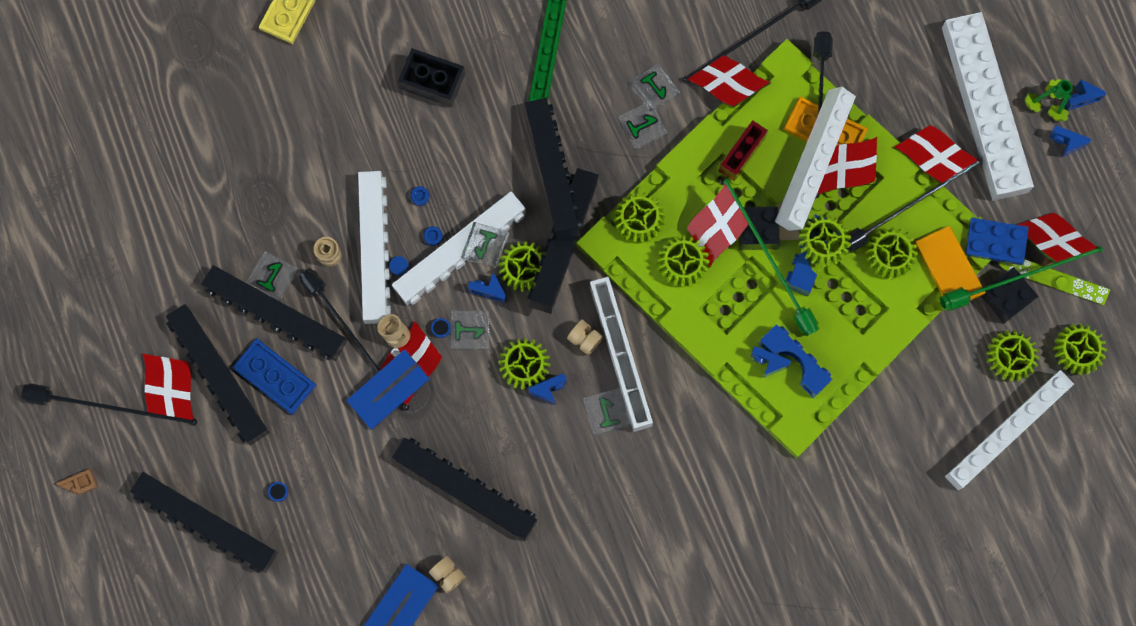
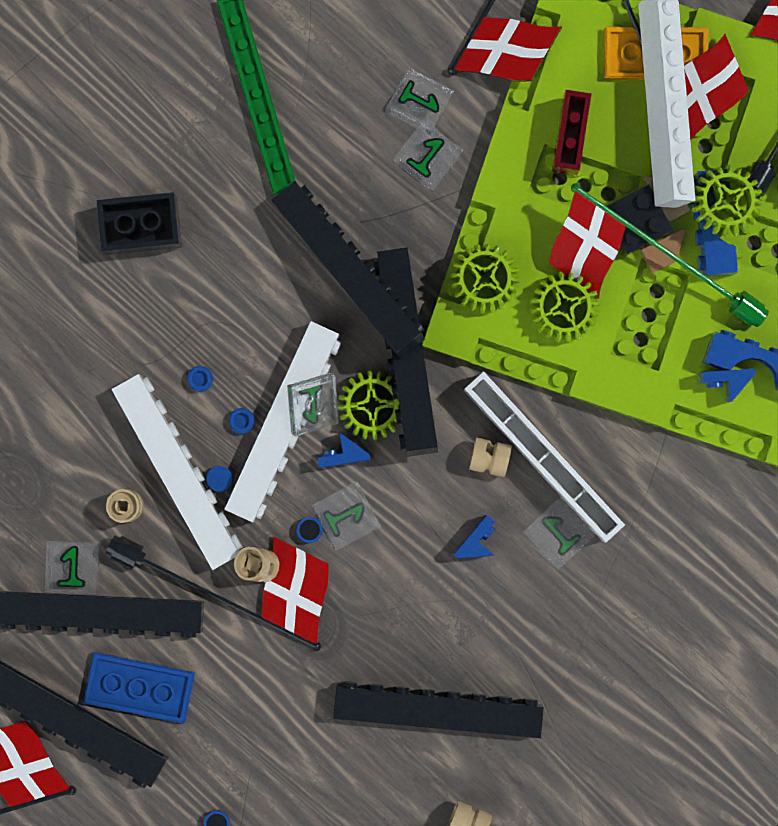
camera: 25 degrees left, 10 degrees up
(388, 389) = (285, 637): blue tile -> none
(520, 347) = (415, 540): lime gear -> none
(761, 261) = (657, 259): none -> medium nougat tile

